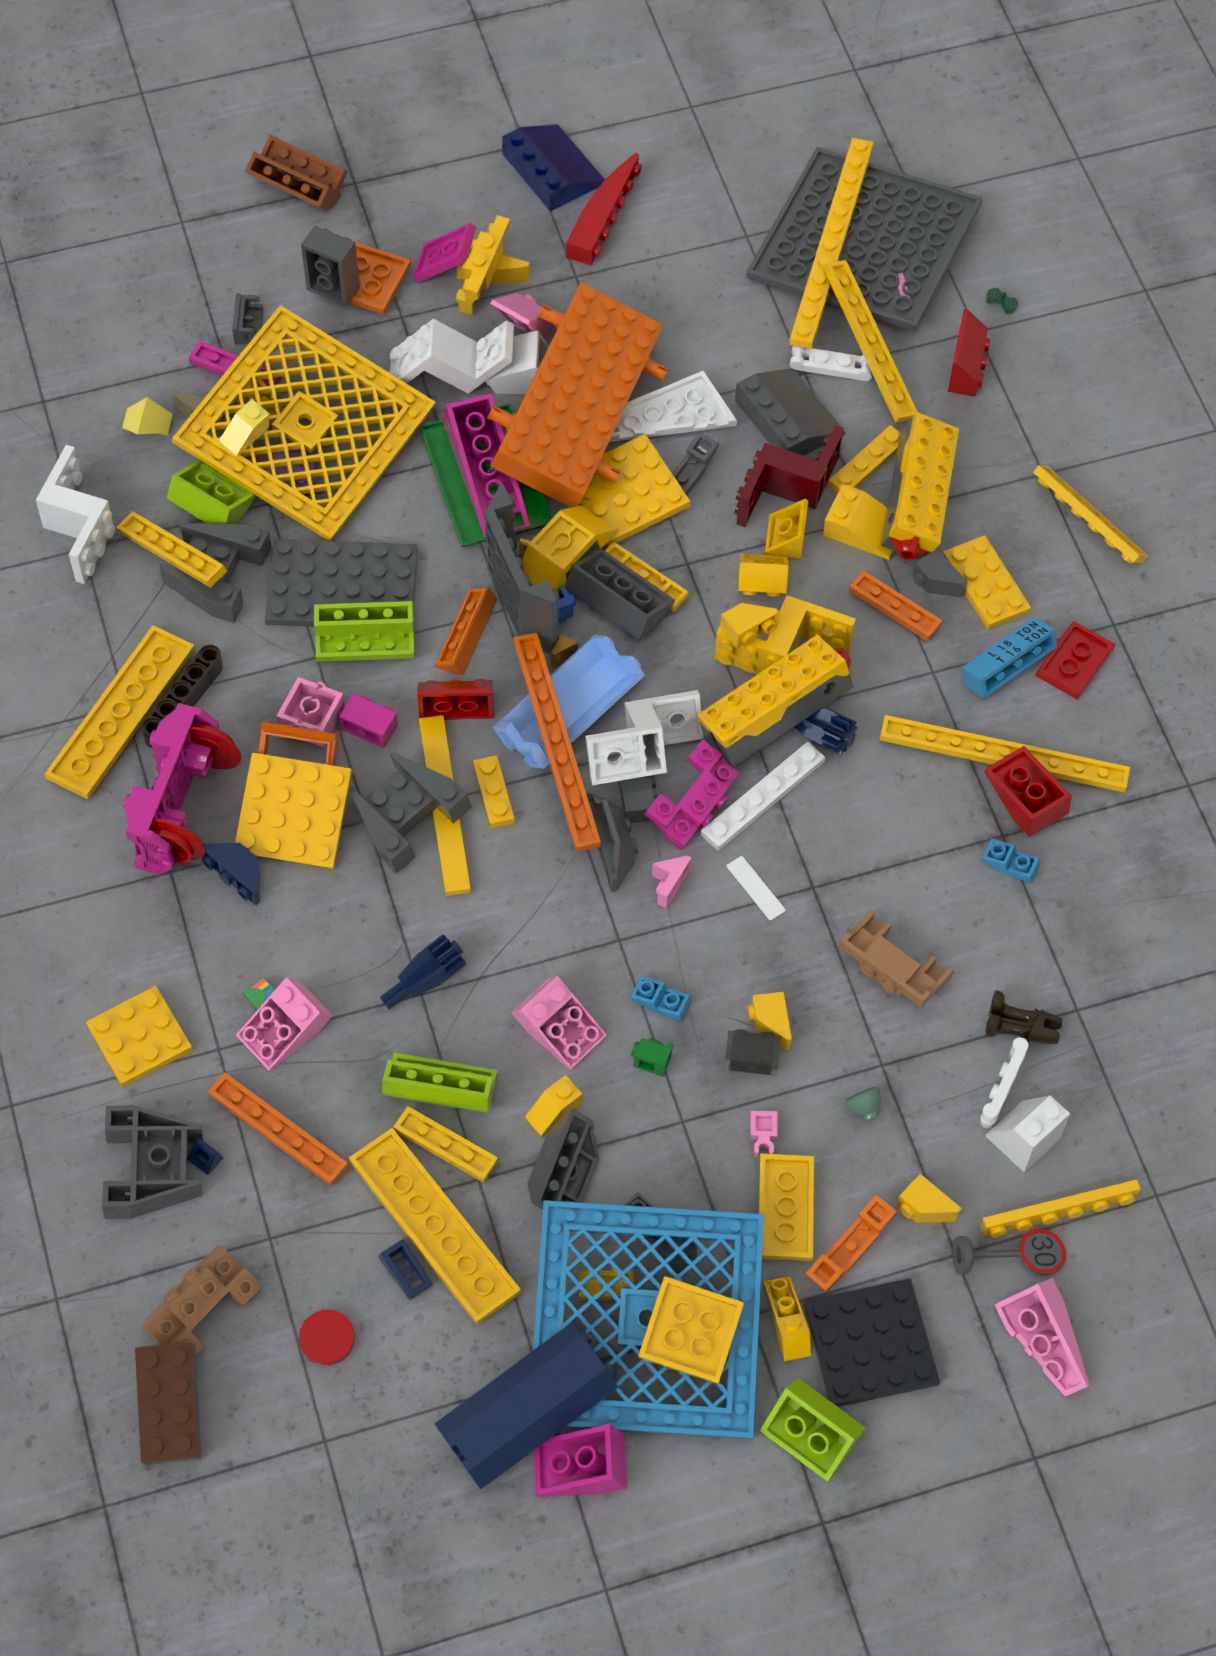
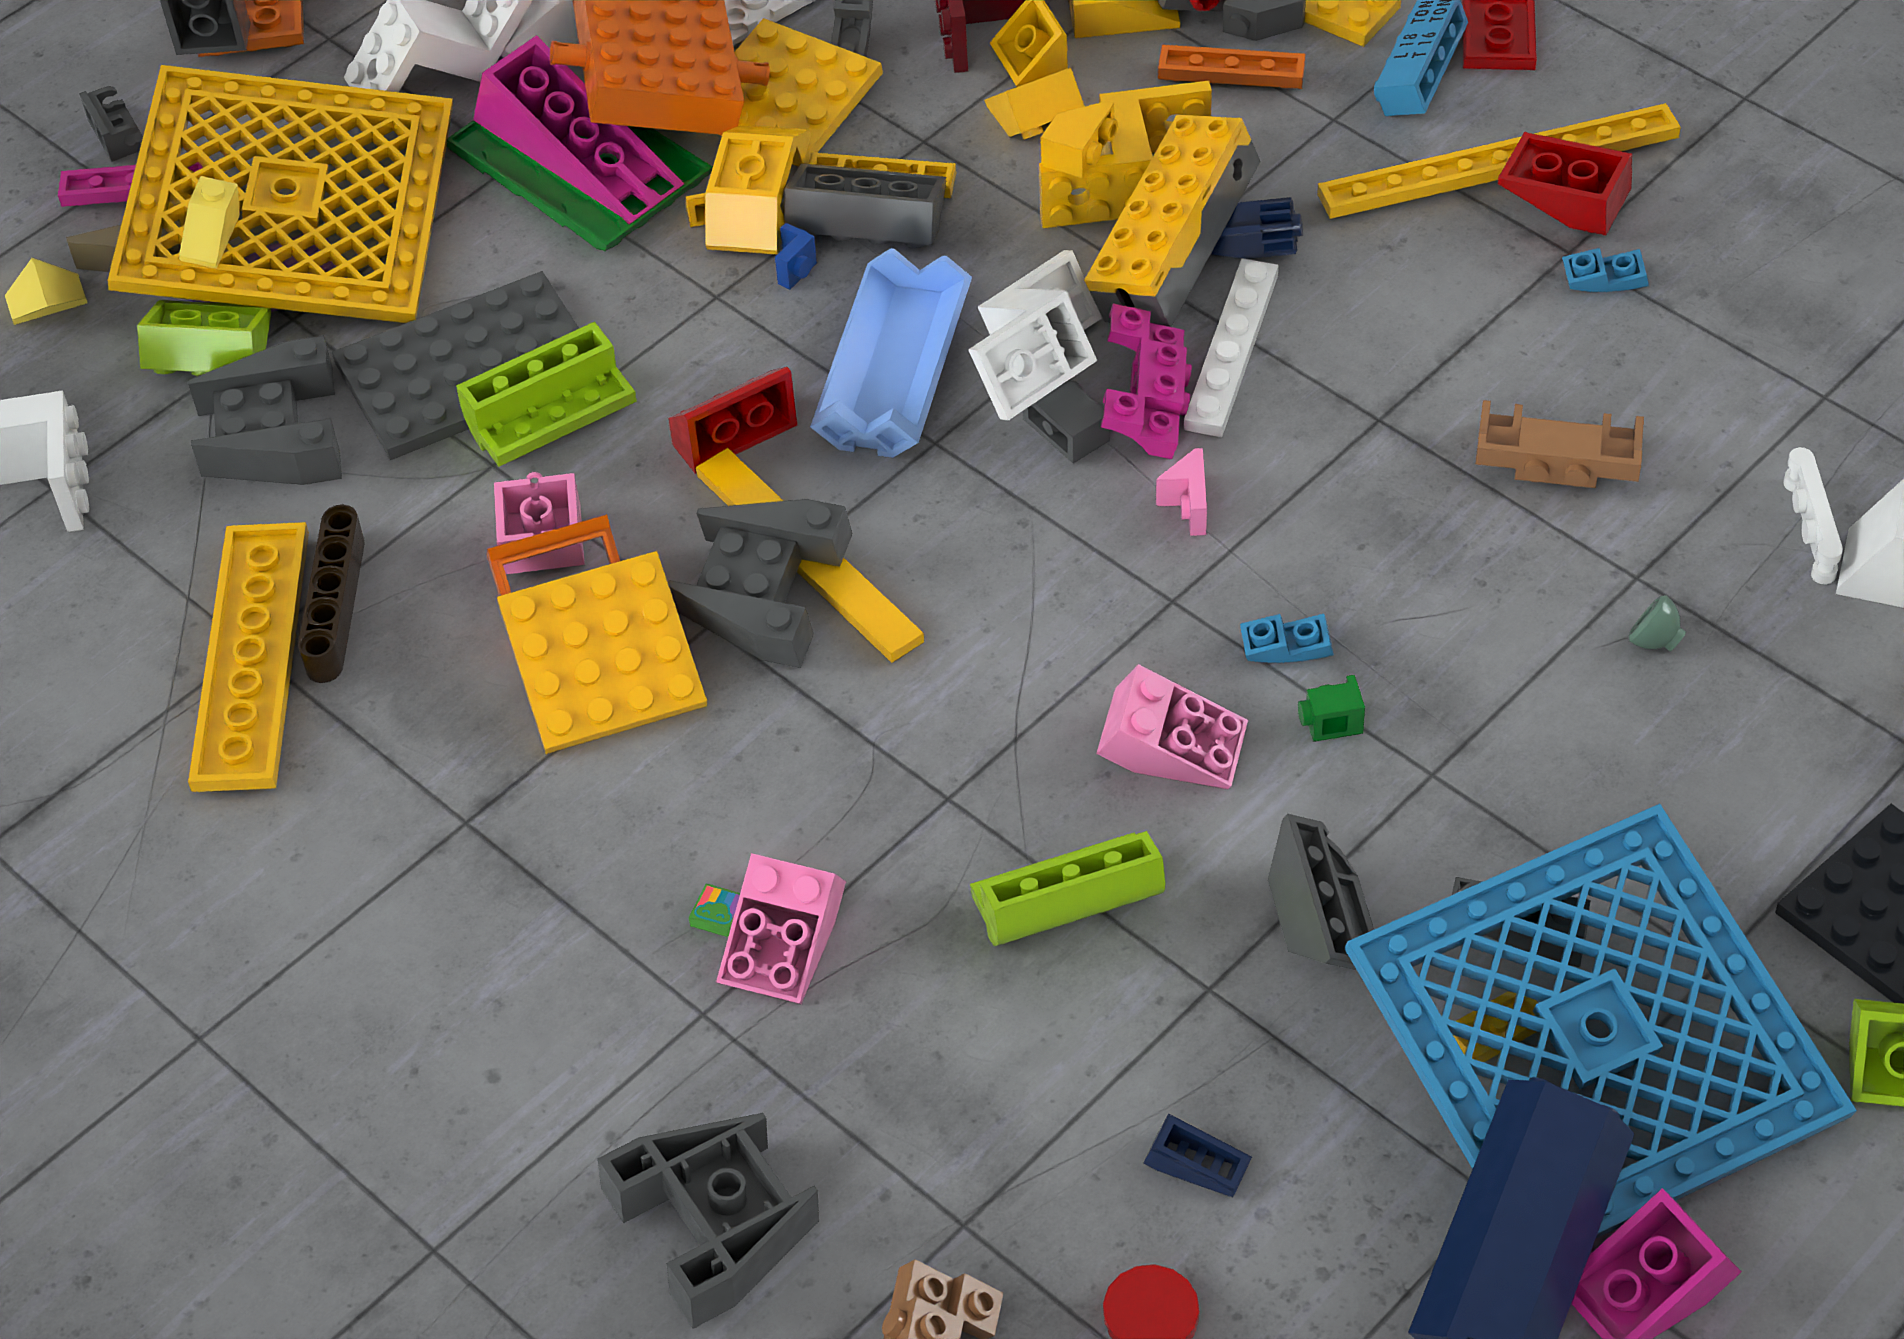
camera: 25 degrees left, 10 degrees down
(139, 1036) = (570, 1056): yellow plate -> none
(171, 549) = (195, 416): yellow plate -> none
(183, 747) = (427, 767): dark pink piece -> none
(204, 1156) = (789, 1159): dark blue slope -> none
(235, 867) = (564, 764): dark blue slope -> none
(278, 1129) = (872, 1069): orange plate -> none
(368, 720) = (629, 497): dark pink brick -> none
(426, 970) = (941, 757): dark blue piece -> none
(435, 1226) = (1198, 1077): yellow plate -> none
(445, 1144) = (1132, 964): yellow plate -> none
(466, 631) = (683, 341): orange slope -> none
(493, 792) = (866, 507): yellow plate -> none
(528, 606) = (732, 241): dark grey slope -> none
(553, 1105) = (1249, 837): yellow slope -> none
(556, 742) = (919, 399): orange plate -> none
(563, 650) = (839, 301): pearl gold slope -> none
(616, 847) = (1067, 479): dark grey wedge -> none
(691, 1330) = (1676, 1005): yellow plate -> none
(752, 1052) = (1465, 637): clear smoke brick -> none
(756, 888) = (1306, 455): white sticker -> none
(763, 1129) = (1552, 722): bright pink plate -> none
(771, 1016) = (1457, 588): yellow slope -> none
(787, 1206) = (1640, 771): yellow plate -> none
(788, 1319) = (1787, 940): yellow slope -> none
(852, 1244) = (1782, 798): orange slope -> none
(927, 1203) = (1838, 701): yellow slope -> none
(1039, 1025) = (1793, 428): dark brown piece -> none

